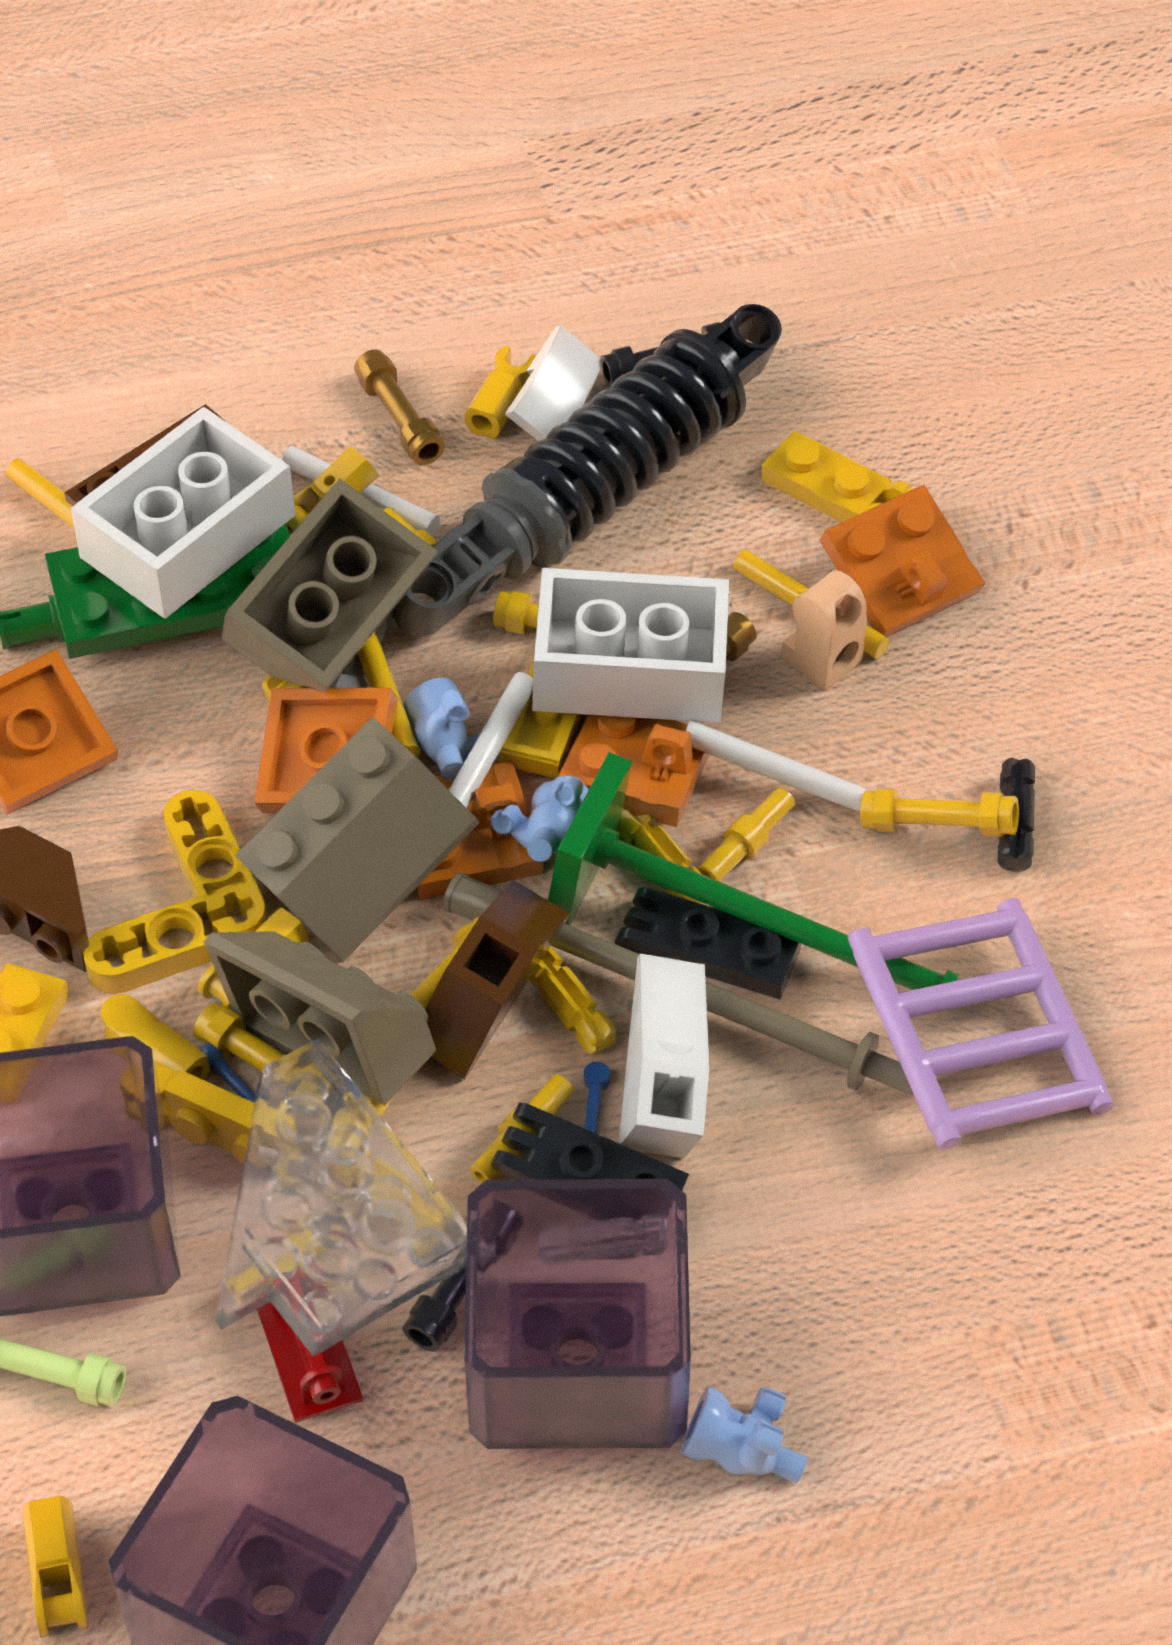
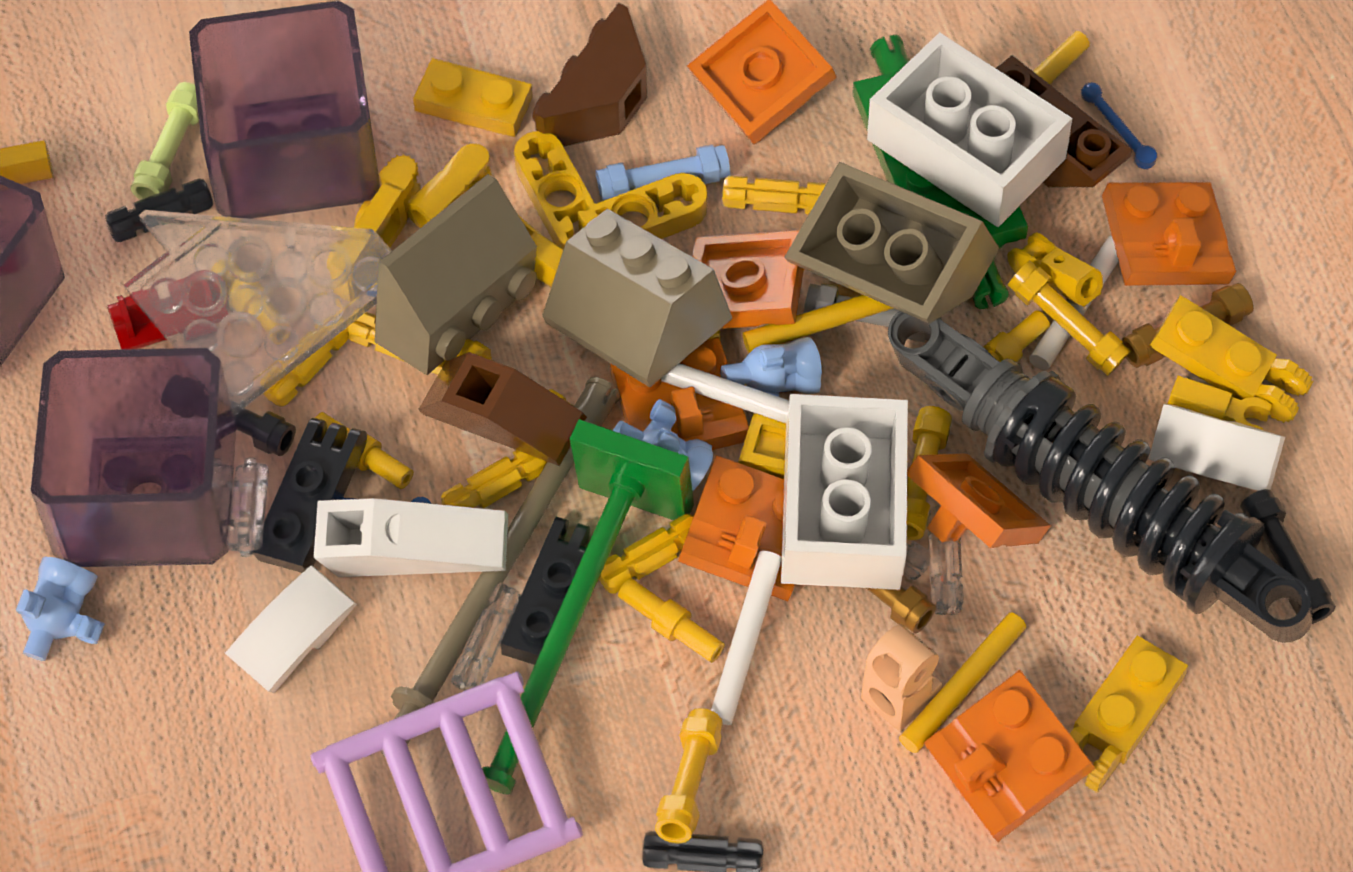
camera: 90 degrees right, 5 degrees up
(89, 463) = (1144, 155): none -> blue hinge
(146, 1370) = (193, 197): none -> black axle
(147, 800) = (709, 164): none -> light blue bar
(196, 735) = (770, 194): none -> yellow axle
(289, 407) = (1168, 233): none -> orange hinge
(425, 470) = (1032, 285): none -> yellow bar
(447, 372) = (1229, 358): none -> yellow hinge
(643, 546) = (974, 501): none -> orange hinge
(777, 1185) = (289, 628): none -> white slope
(815, 1011) = (485, 638): none -> clear axle

